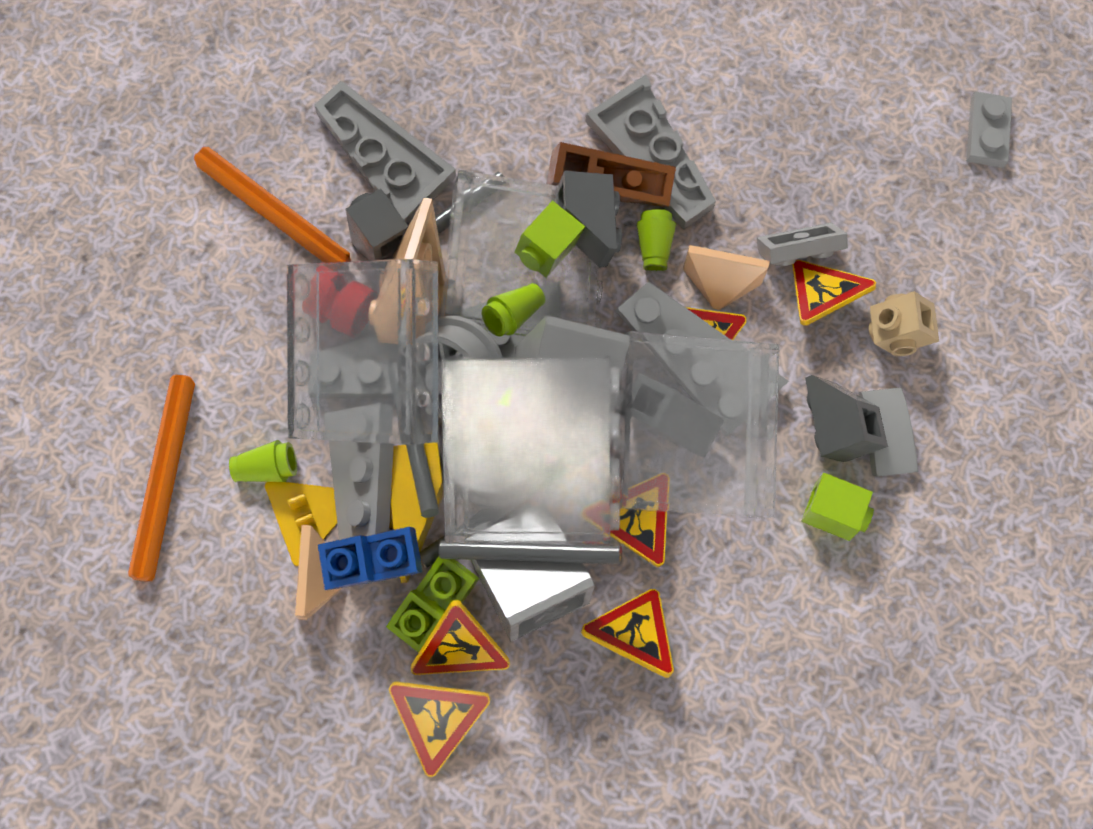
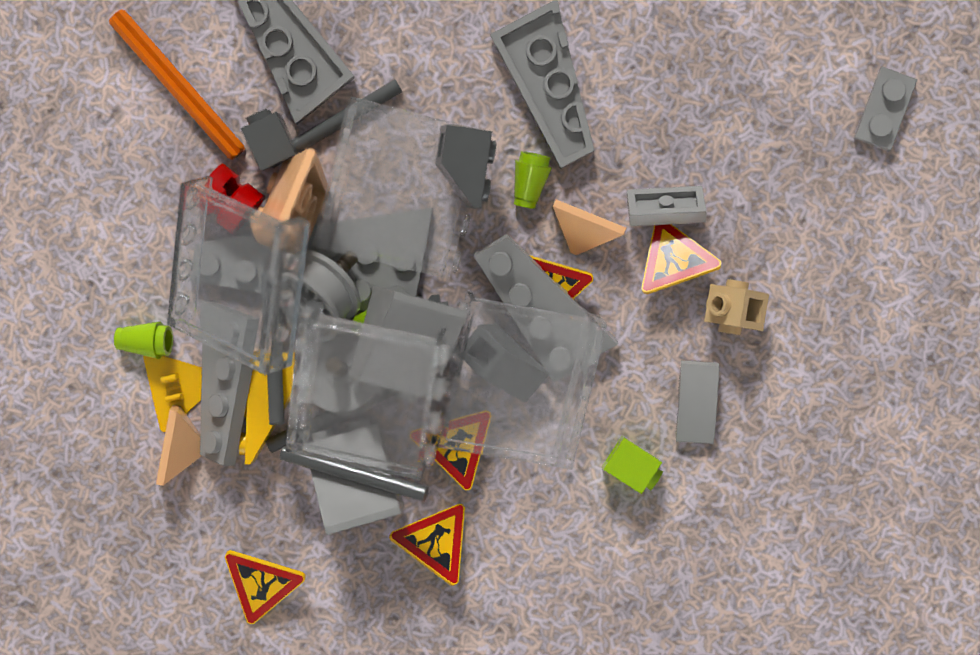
camera: 15 degrees right, 20 degrees up
(161, 479) = (56, 333): orange axle -> none
(369, 558) = (222, 451): blue slope -> none
(427, 603) = (269, 488): lime slope -> none
(459, 646) = (287, 527): piece -> none
(511, 309) = (377, 250): lime cone -> none
(548, 239) = (421, 186): lime brick -> none
(633, 178) = (493, 109): dark orange slope -> none
(843, 421) = (657, 386): dark grey slope -> none

